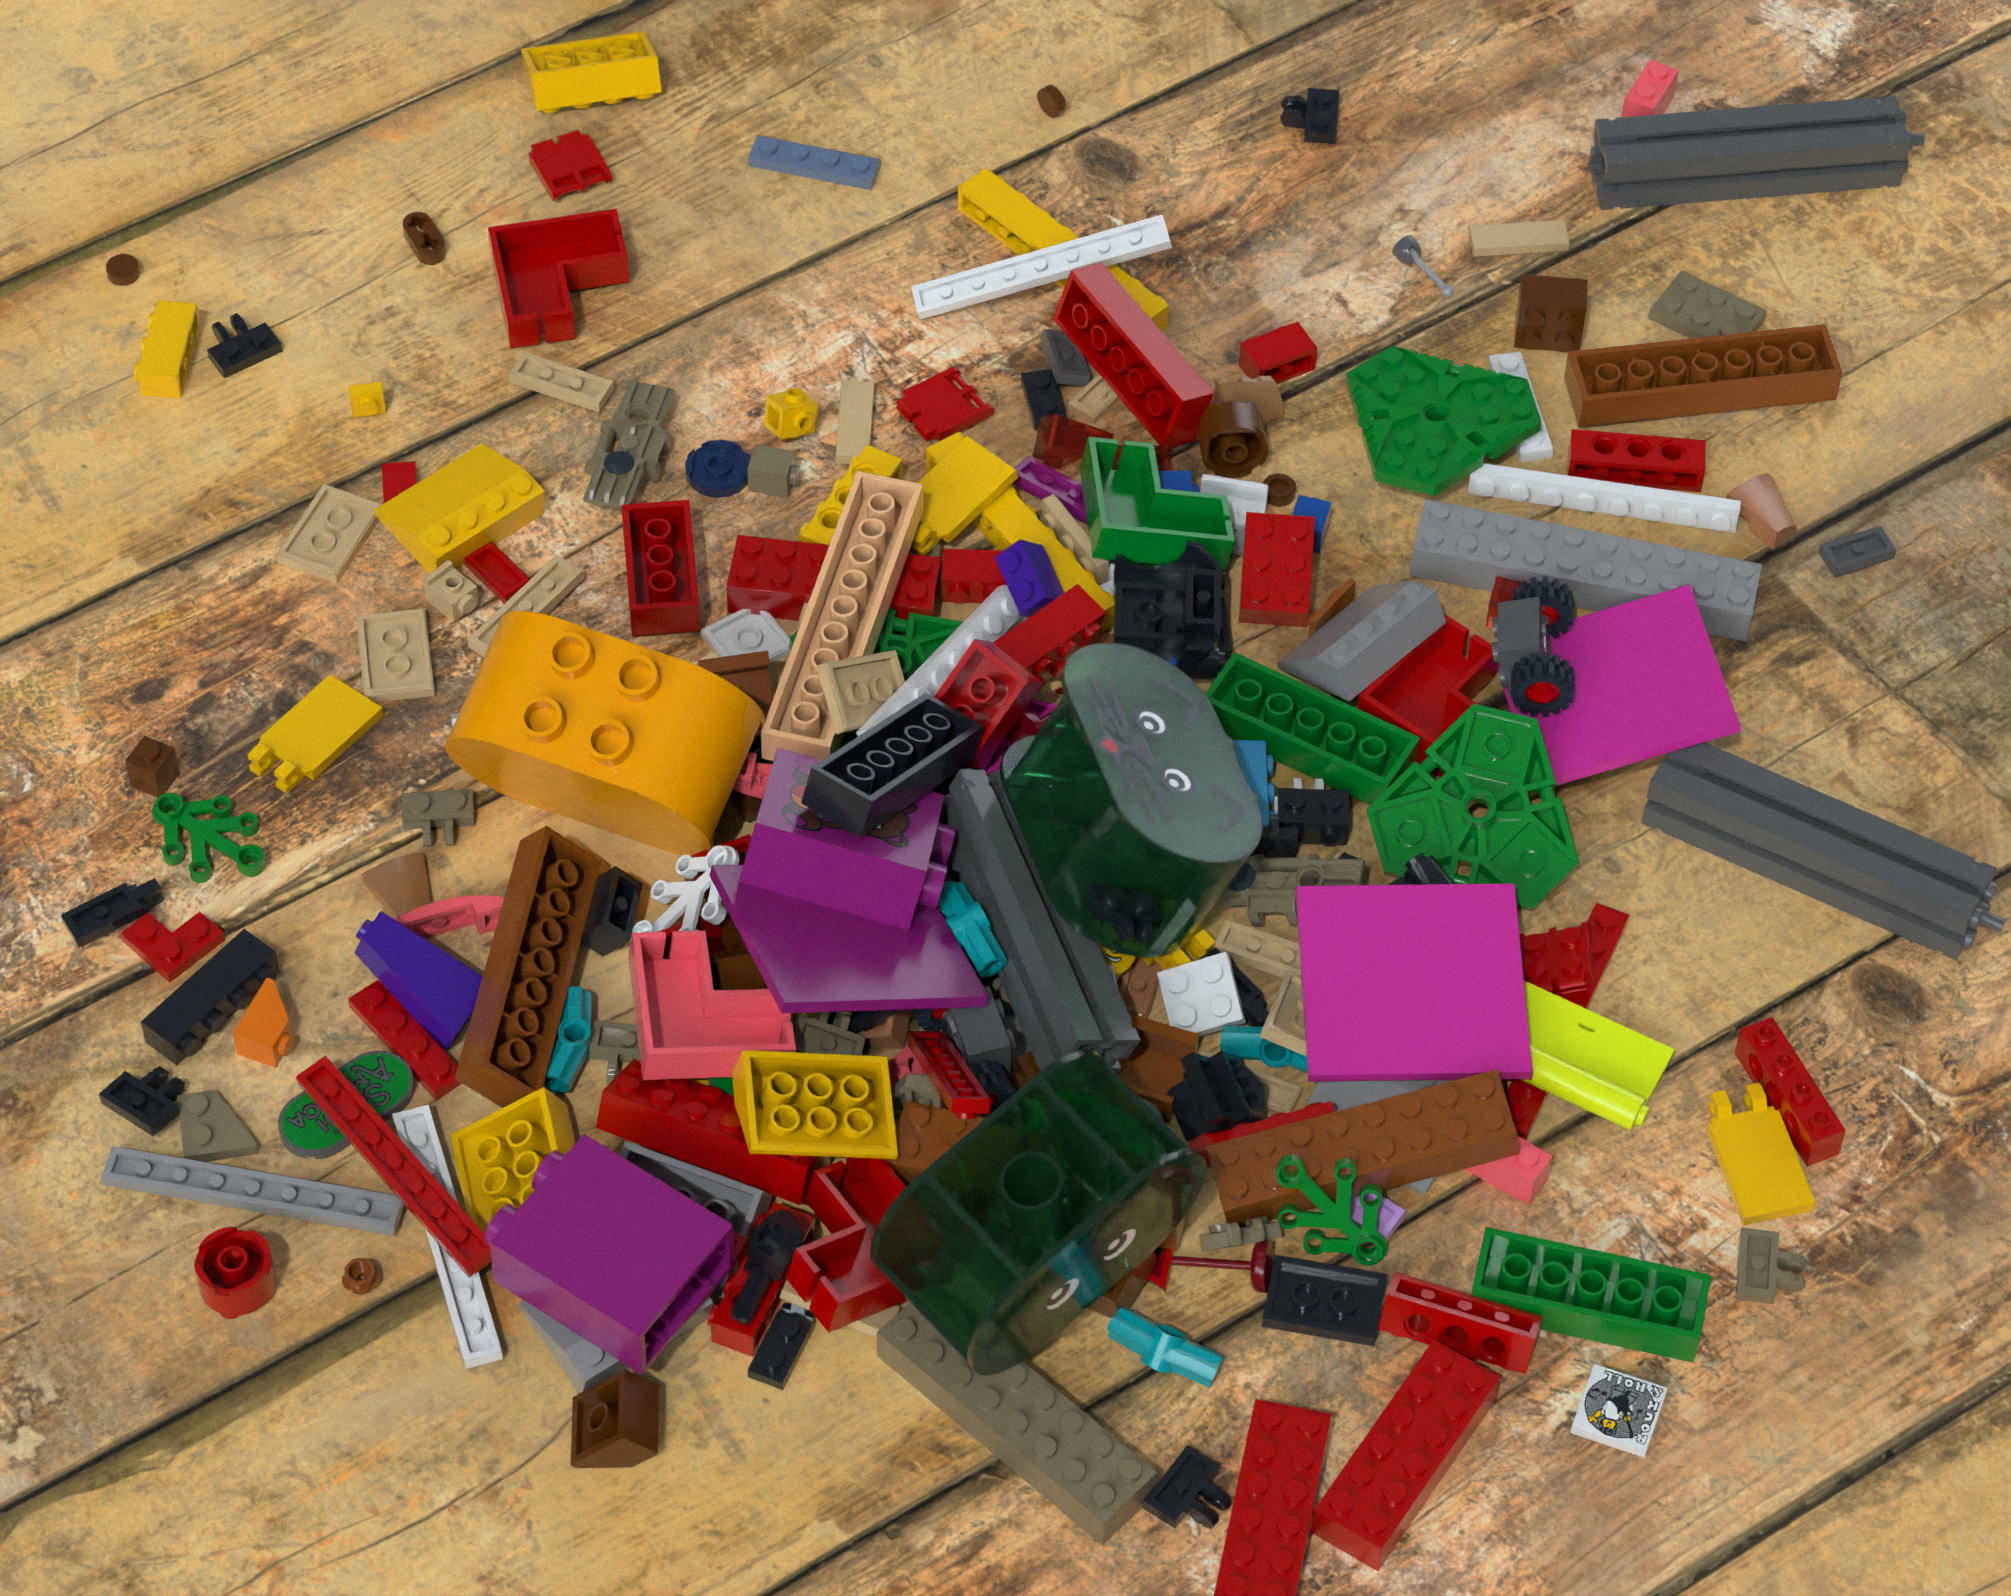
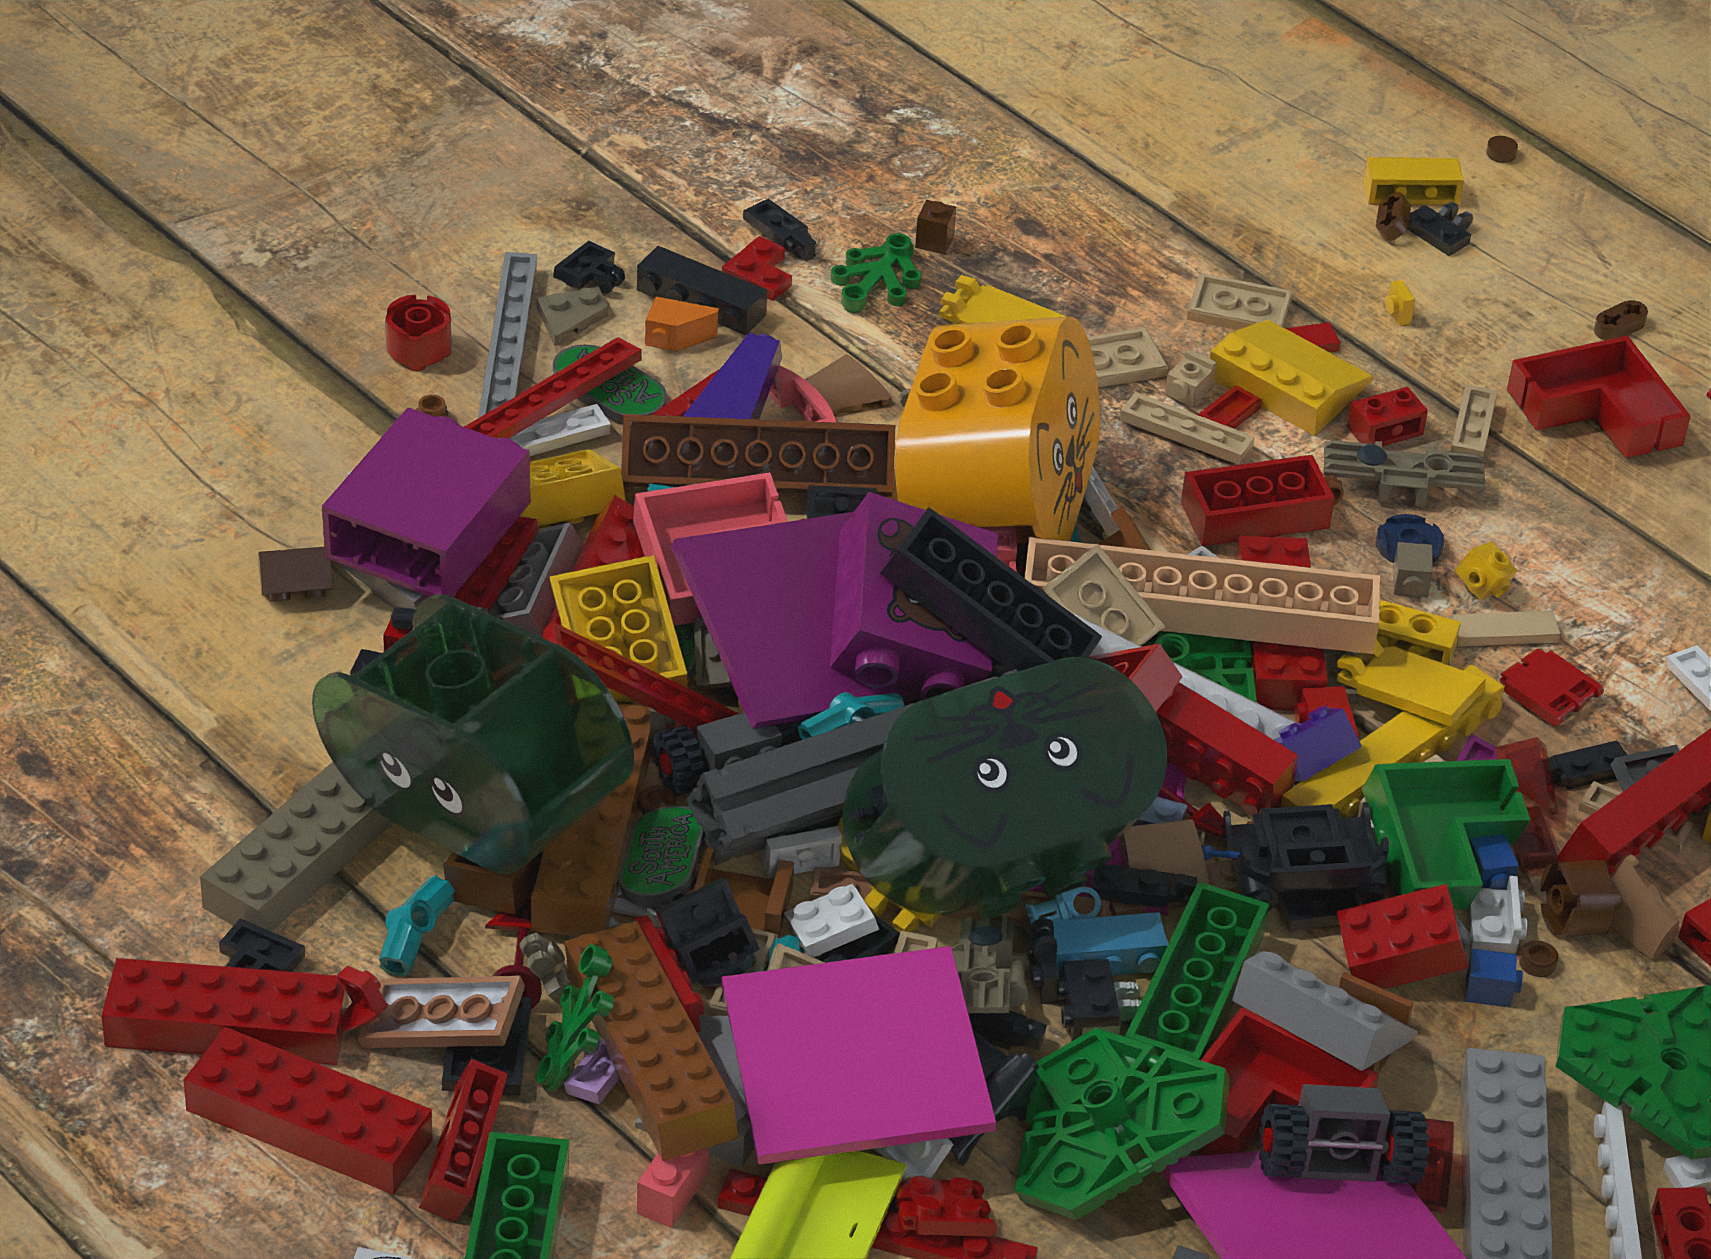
camera: 80 degrees right, 10 degrees down
(221, 385) = (1393, 216): none -> reddish brown beam
(544, 446) = (1387, 417): none -> red brick
(1286, 1387) = (365, 997): none -> red plate
(1300, 1326) = (444, 1012): none -> nougat piece

